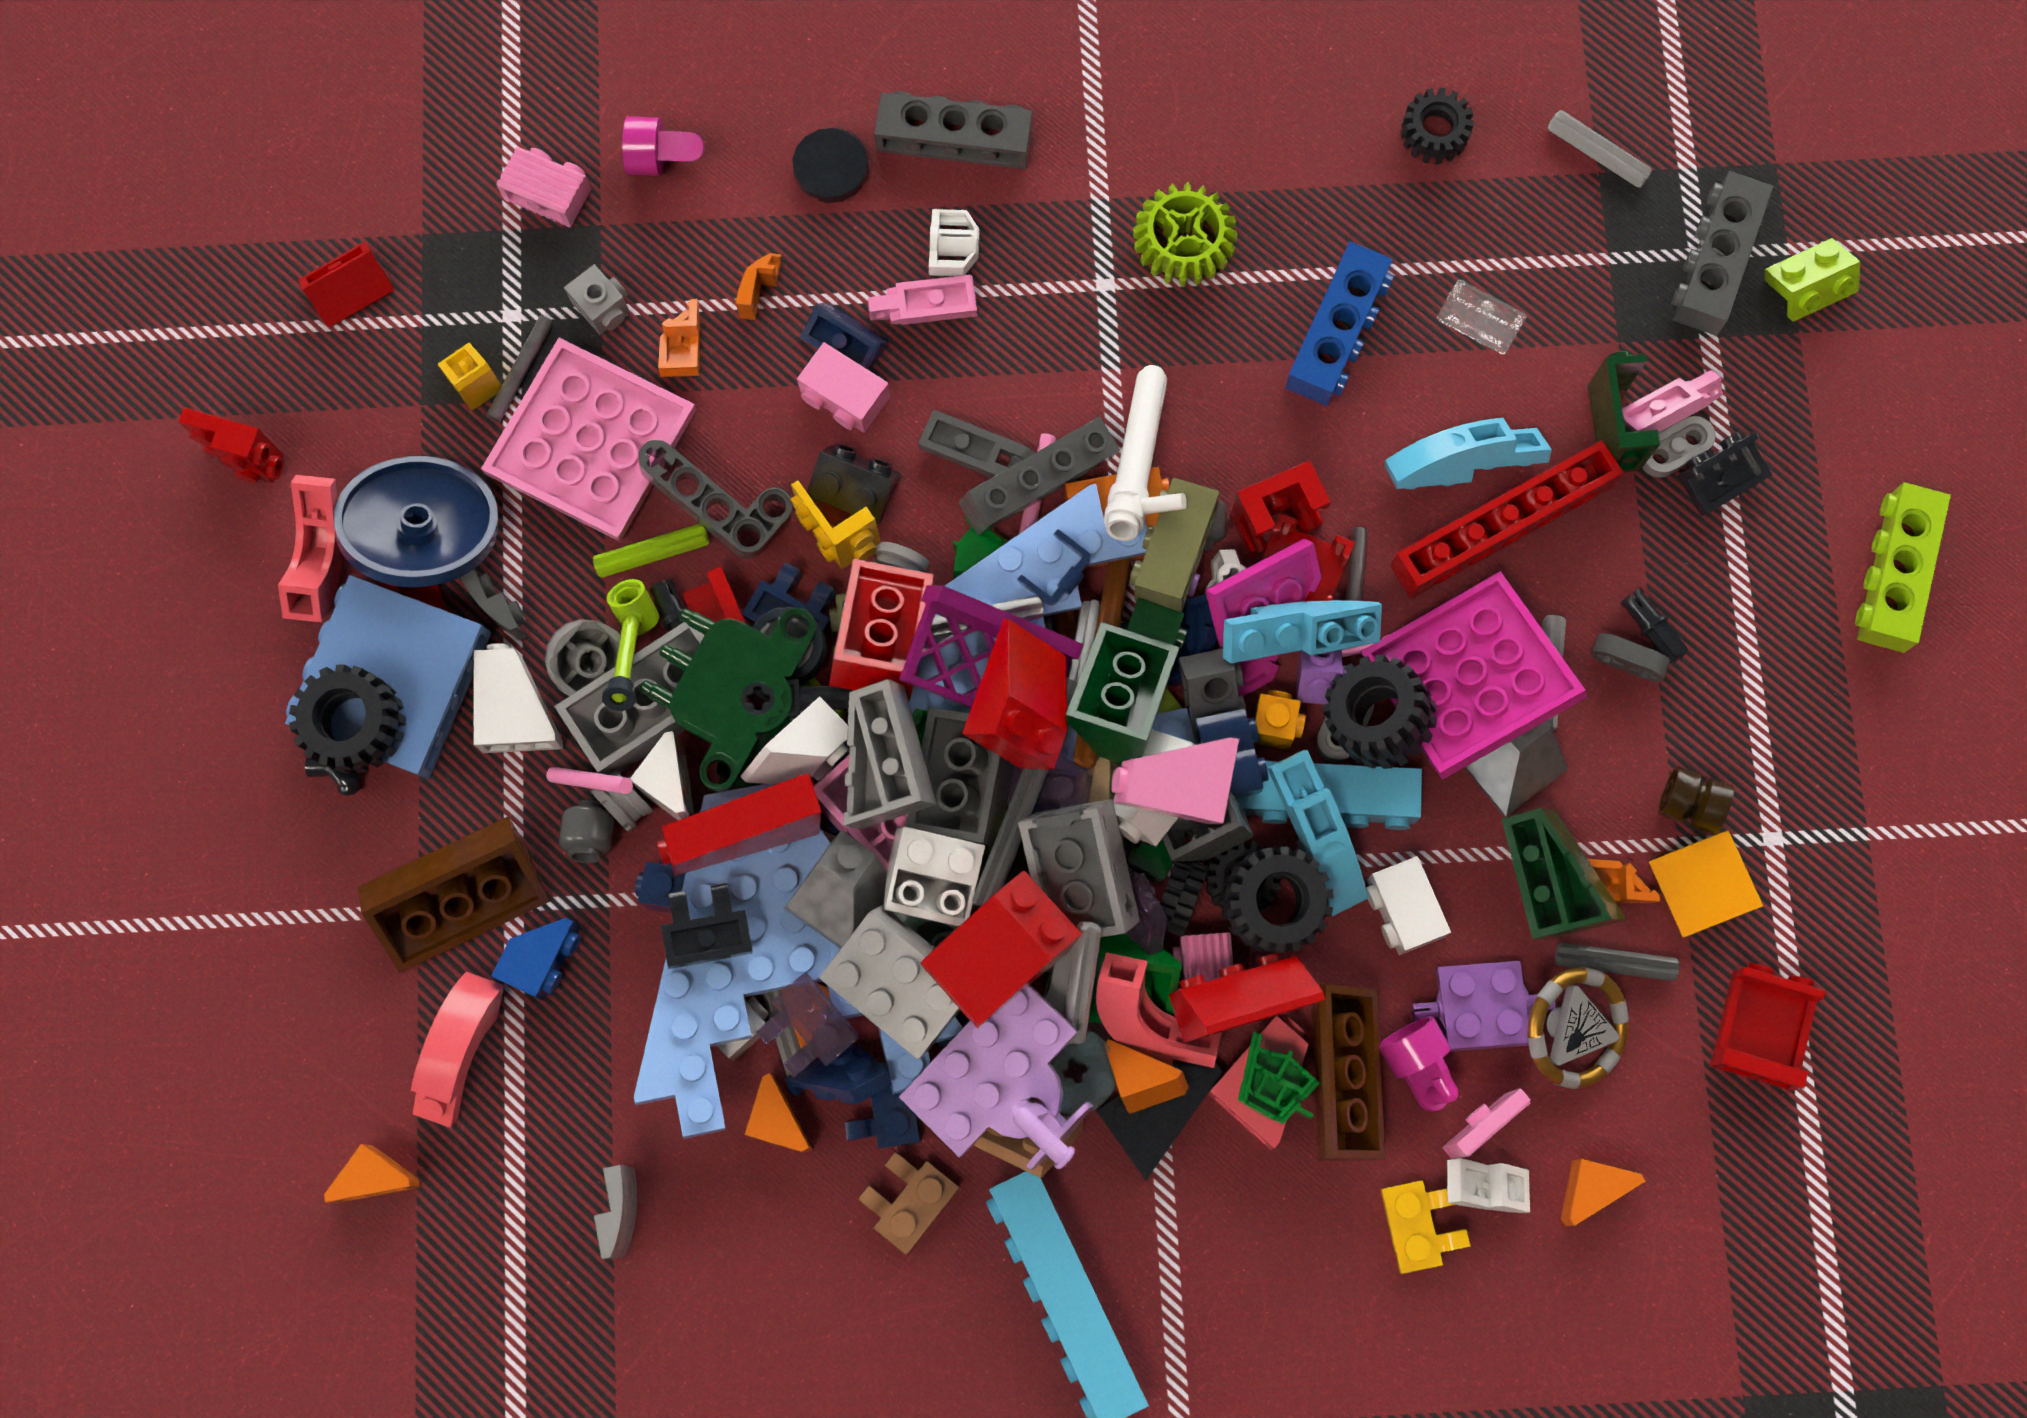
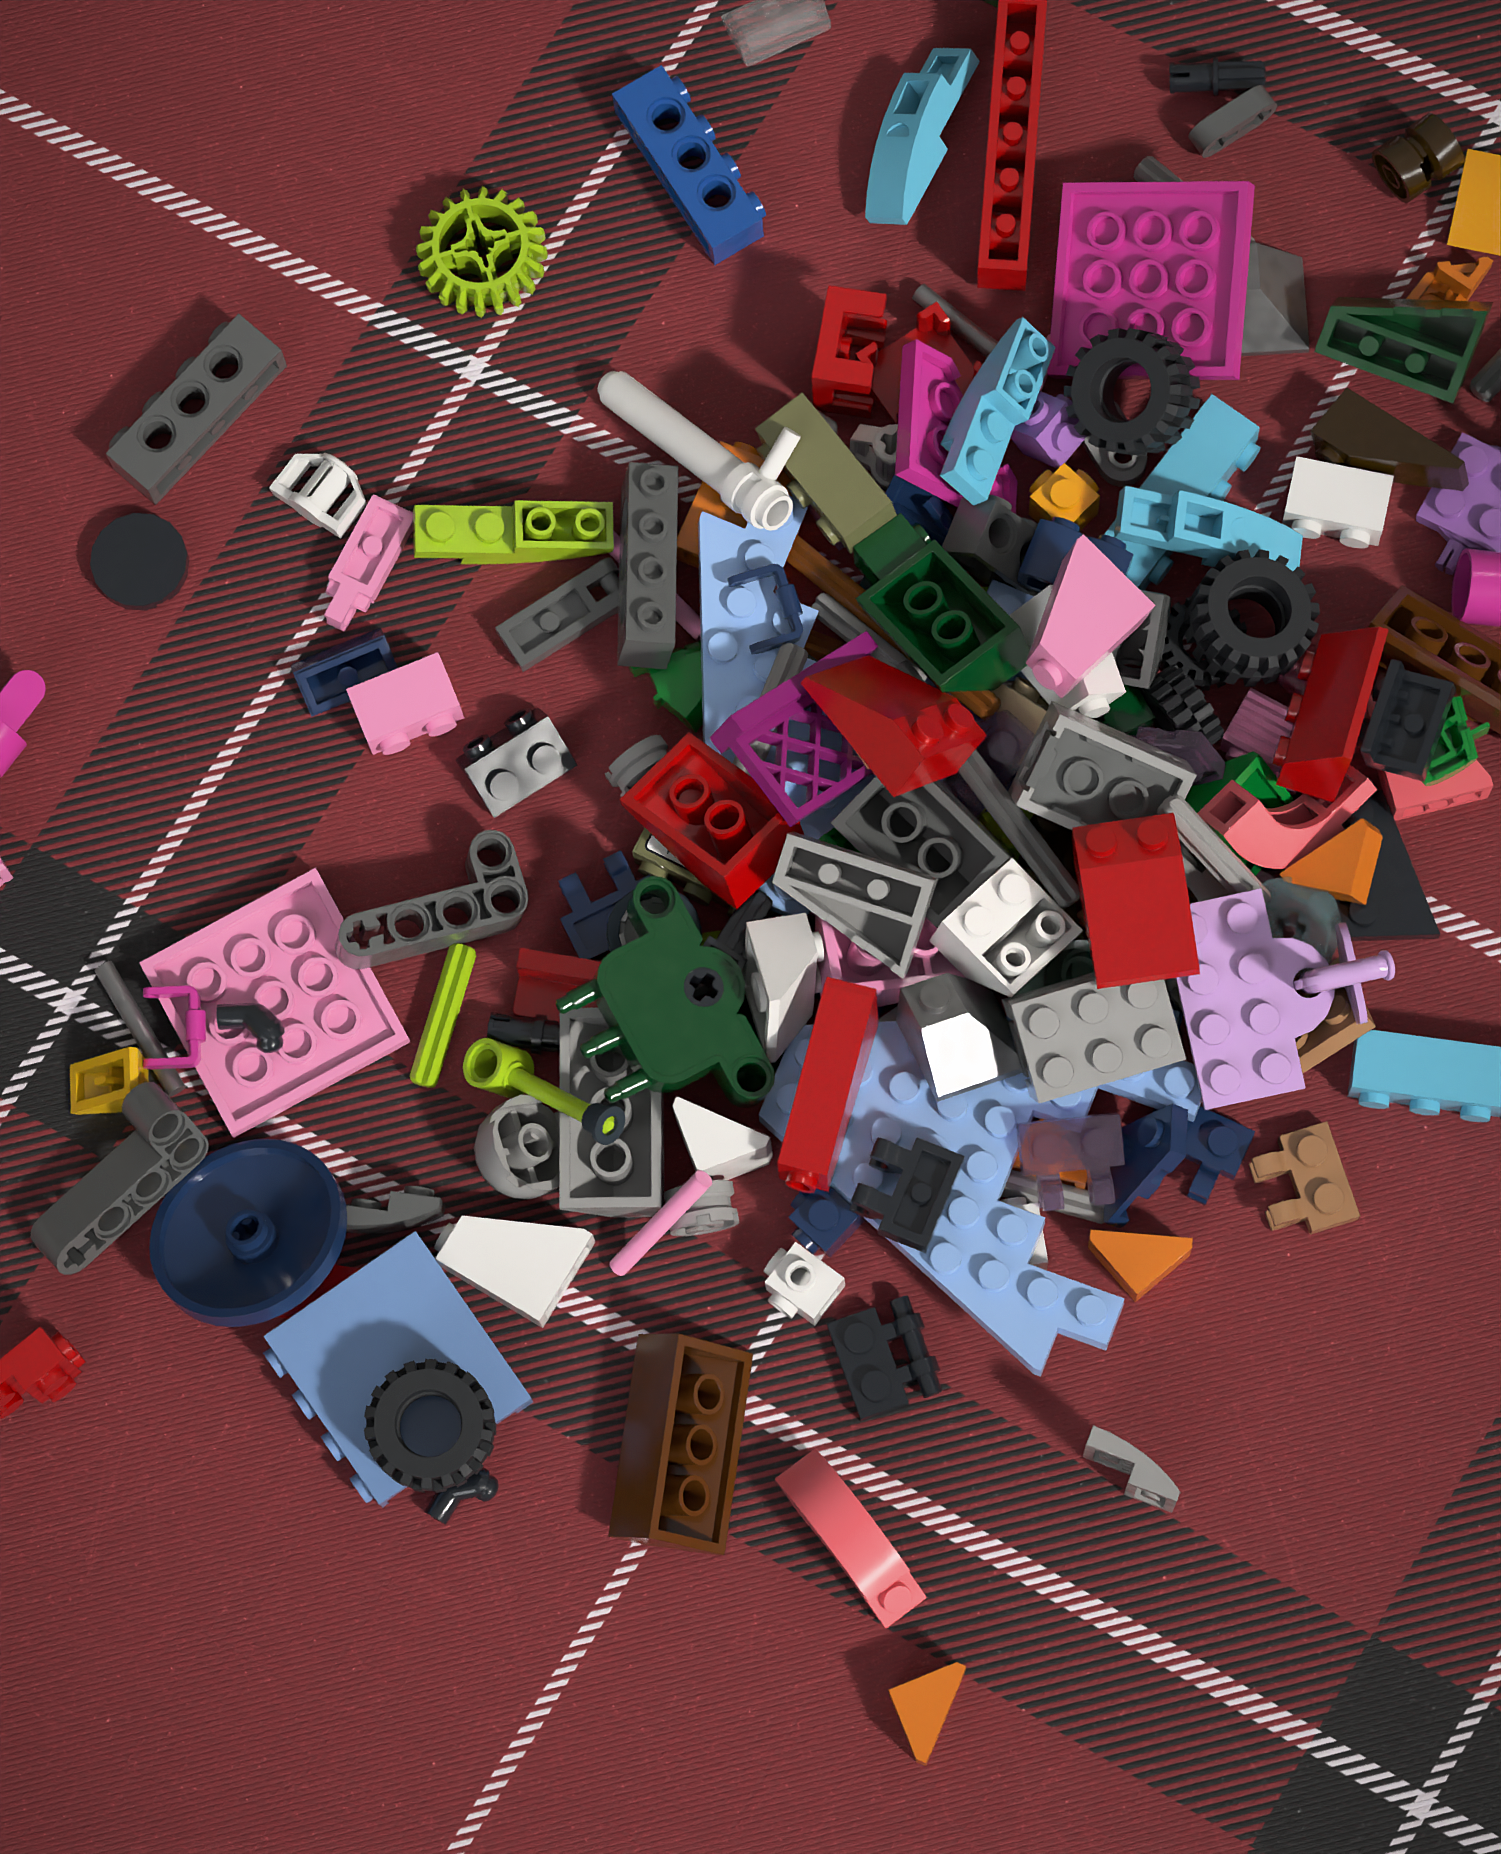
camera: 50 degrees left, 0 degrees up
(317, 561) = (202, 1362): coral arch -> none
(404, 425) = (123, 1183): none -> dark grey beam
(535, 957) = (807, 1401): blue slope -> none
(536, 397) = (195, 1027): none -> dark pink piece
(563, 434) = (256, 1020): none -> black arm
(586, 832) = (708, 1265): dark grey head -> none
(590, 984) = (869, 1364): none -> black plate
(598, 299) = (124, 895): light grey brick -> none
(613, 902) = (801, 1283): none -> white brick
(681, 344) = (232, 843): orange slope -> none
(761, 272) = (215, 705): orange slope -> none
(847, 541) = (567, 819): yellow bracket -> none
(1005, 377) = (513, 533): none -> lime slope
(1269, 1055) = (1405, 721): none -> black bracket
(1466, 900) = (1372, 440): none -> dark brown slope

